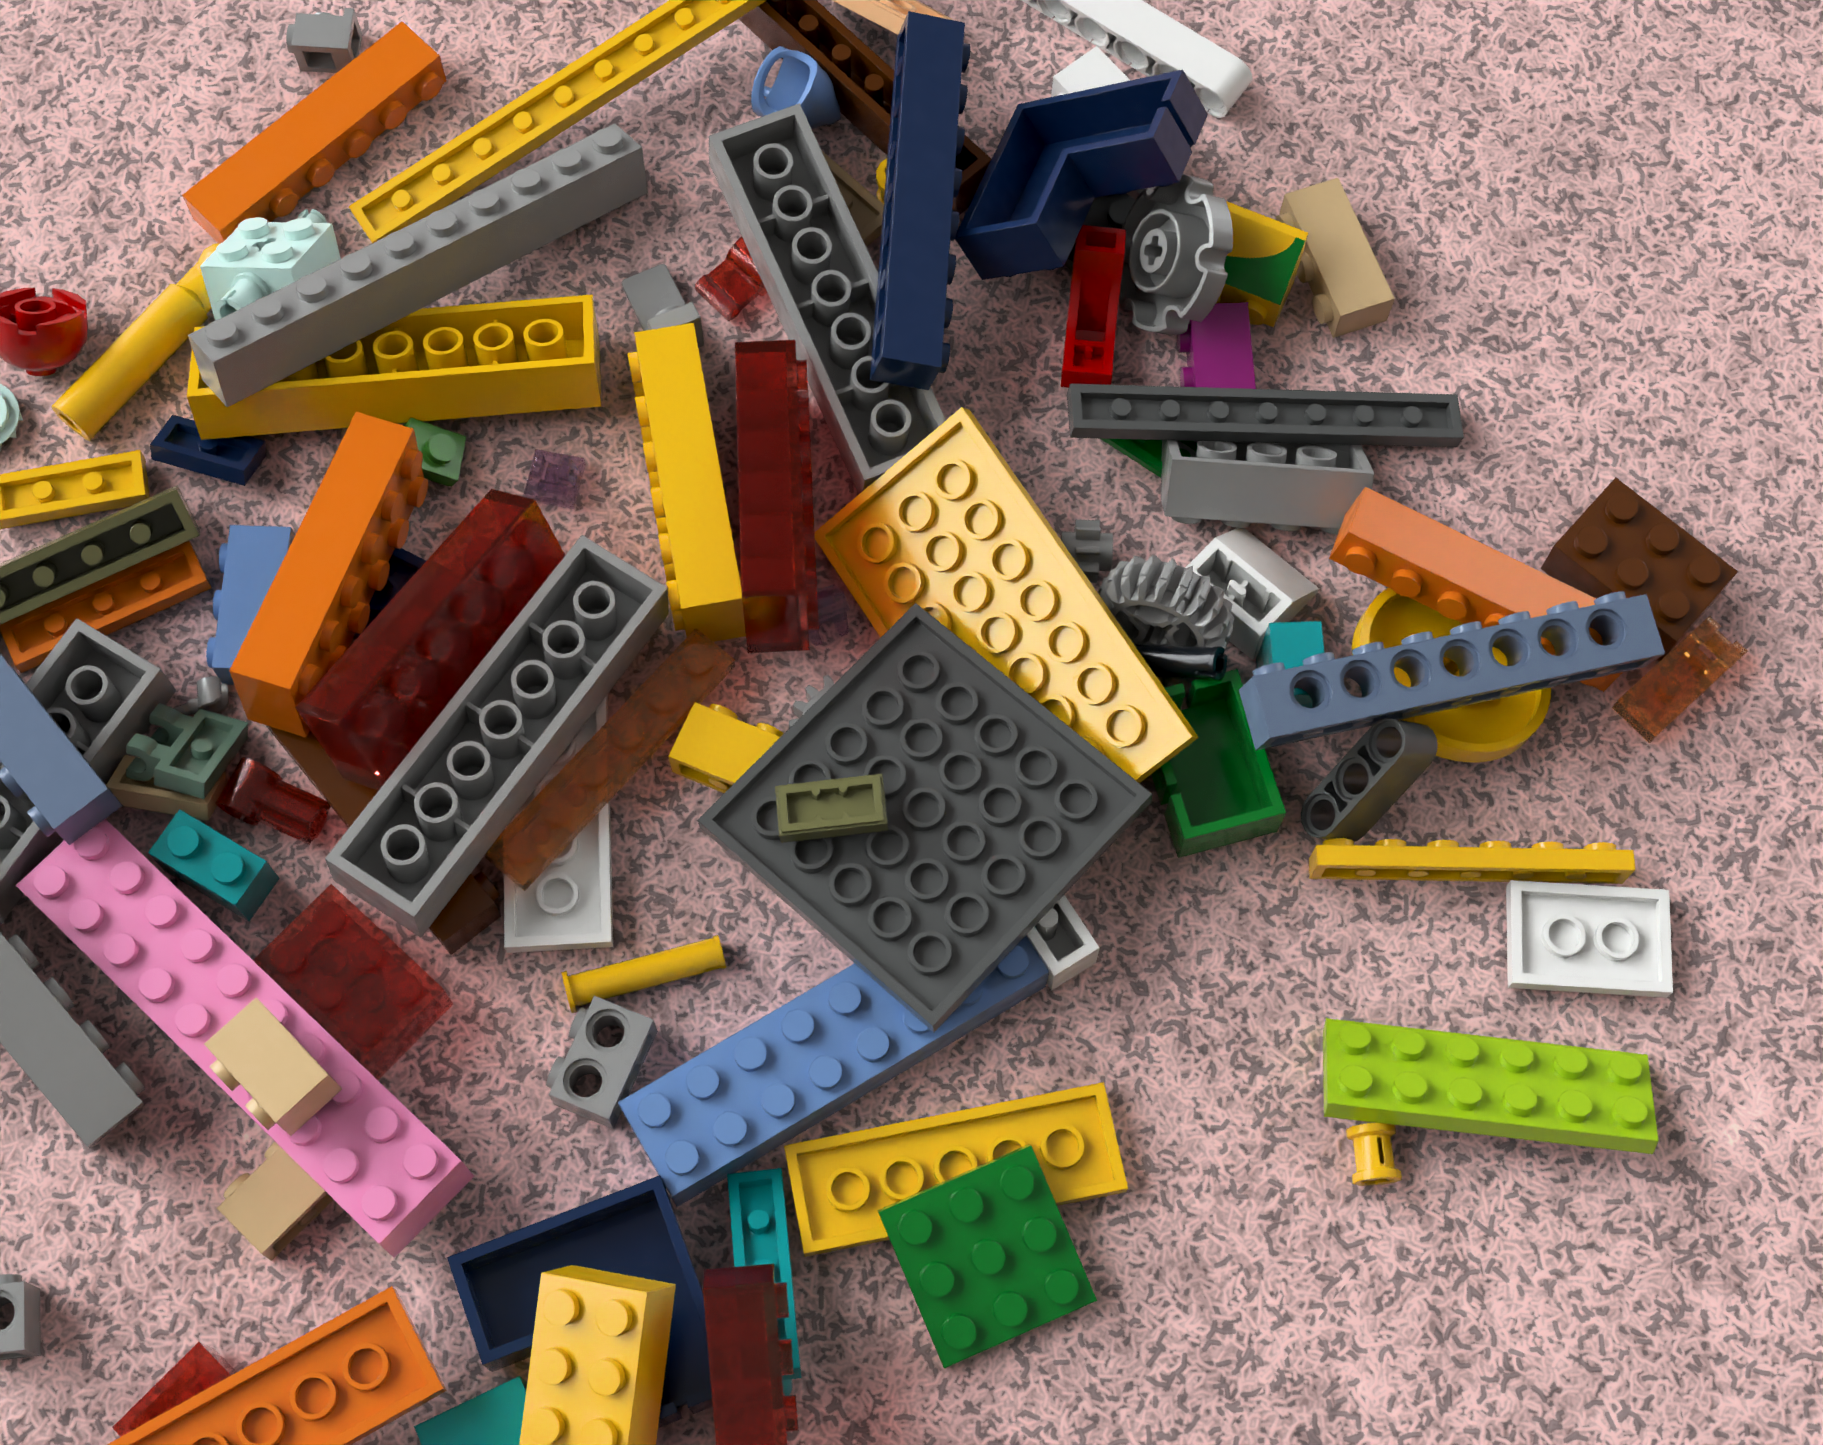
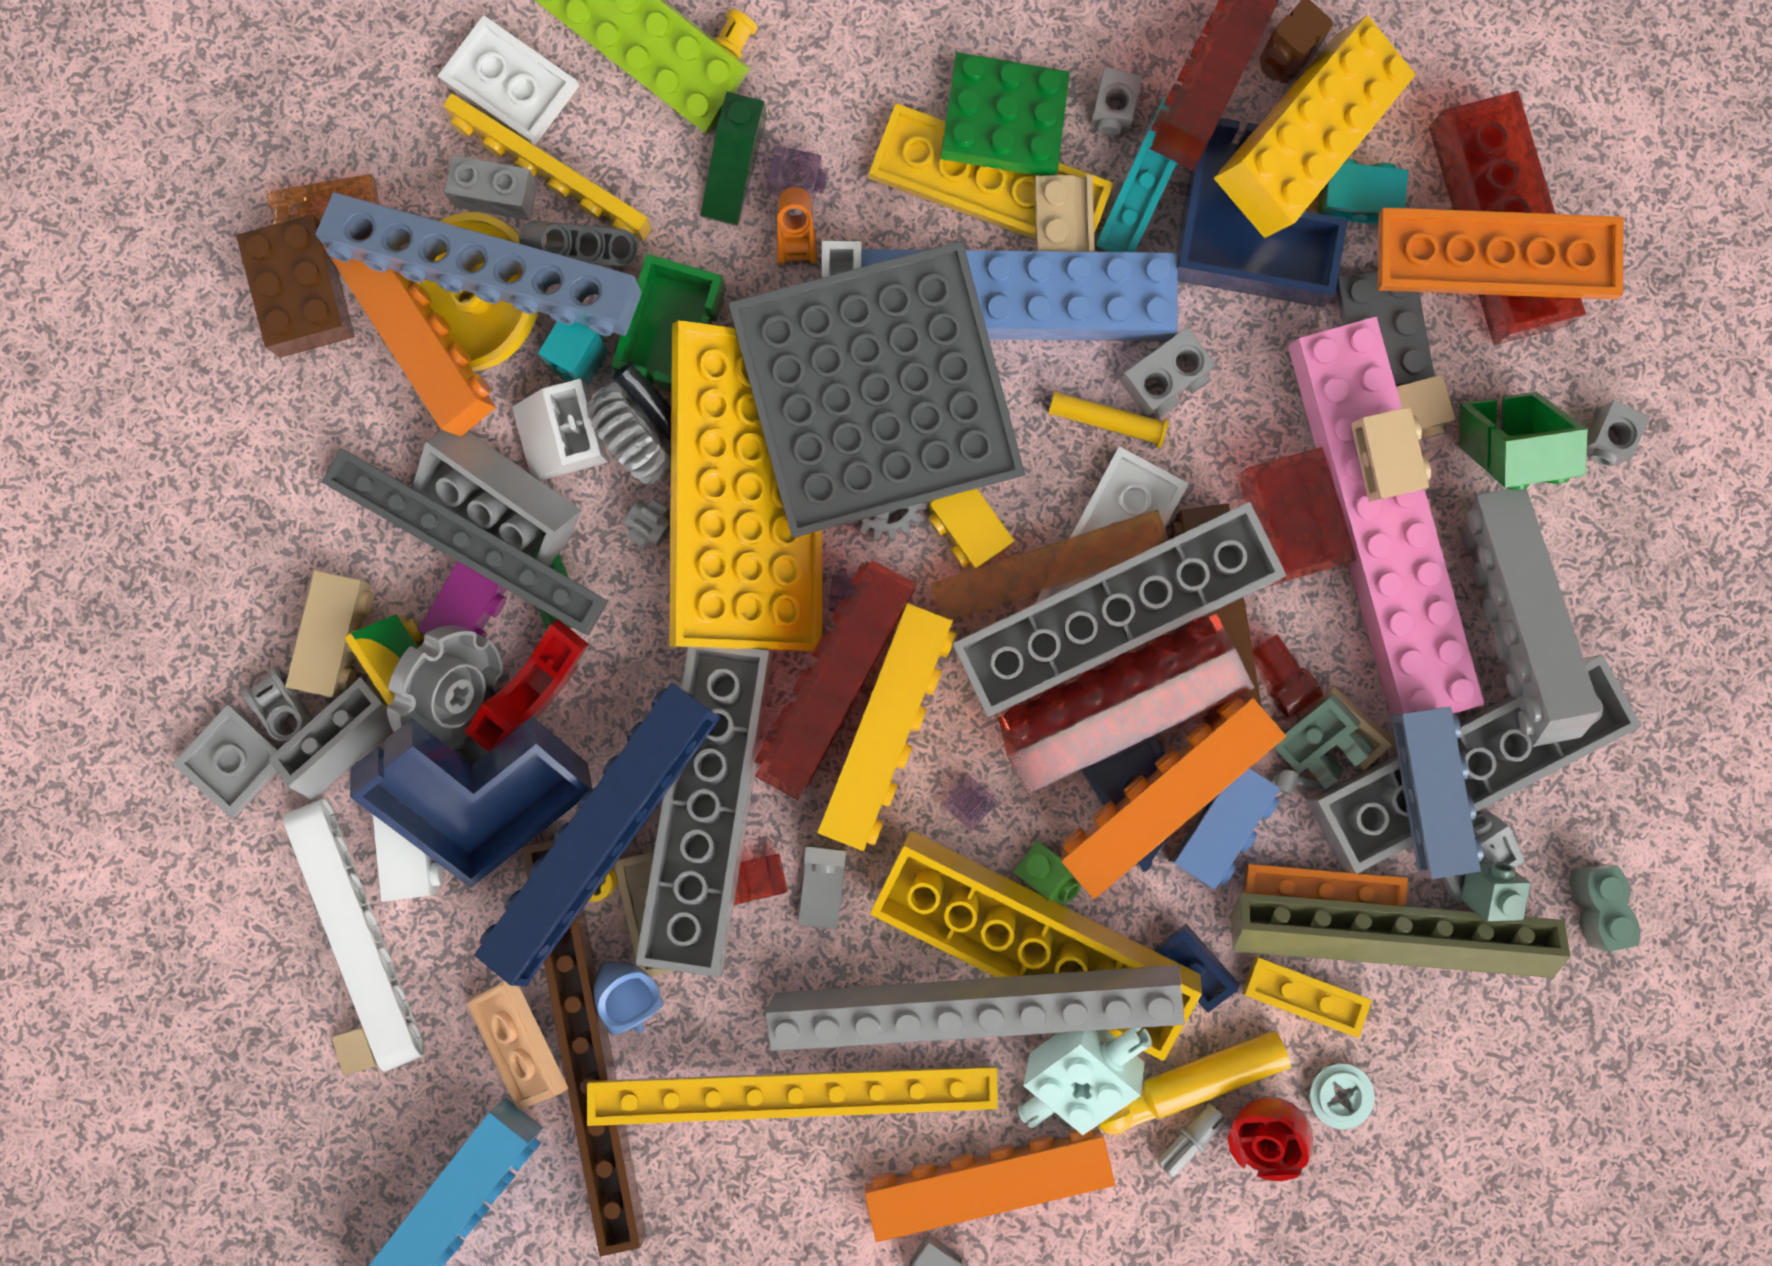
camera: 150 degrees left, 15 degrees up
(105, 1202) = (1531, 447): none -> green piece
(123, 291) = (1192, 1140): none -> light grey axle
(214, 865) = (1345, 651): teal brick -> none
(340, 1265) = (1399, 321): none -> dark grey plate
(831, 808) = (938, 419): olive plate -> none
(838, 1169) = (1064, 213): none -> tan plate
(862, 1385) = (1120, 87): none -> light grey brick
(1143, 962) = (795, 233): none -> orange piece
(1201, 1013) = (789, 160): none -> clear purple brick
(1257, 149) = (333, 740): none -> light grey brick
(1272, 1007) = (733, 157): none -> dark green slope
(1333, 159) = (276, 704): none -> light grey piece
(1341, 96) = (229, 760): none -> light grey plate
(1514, 799) = (491, 187): none -> light grey brick

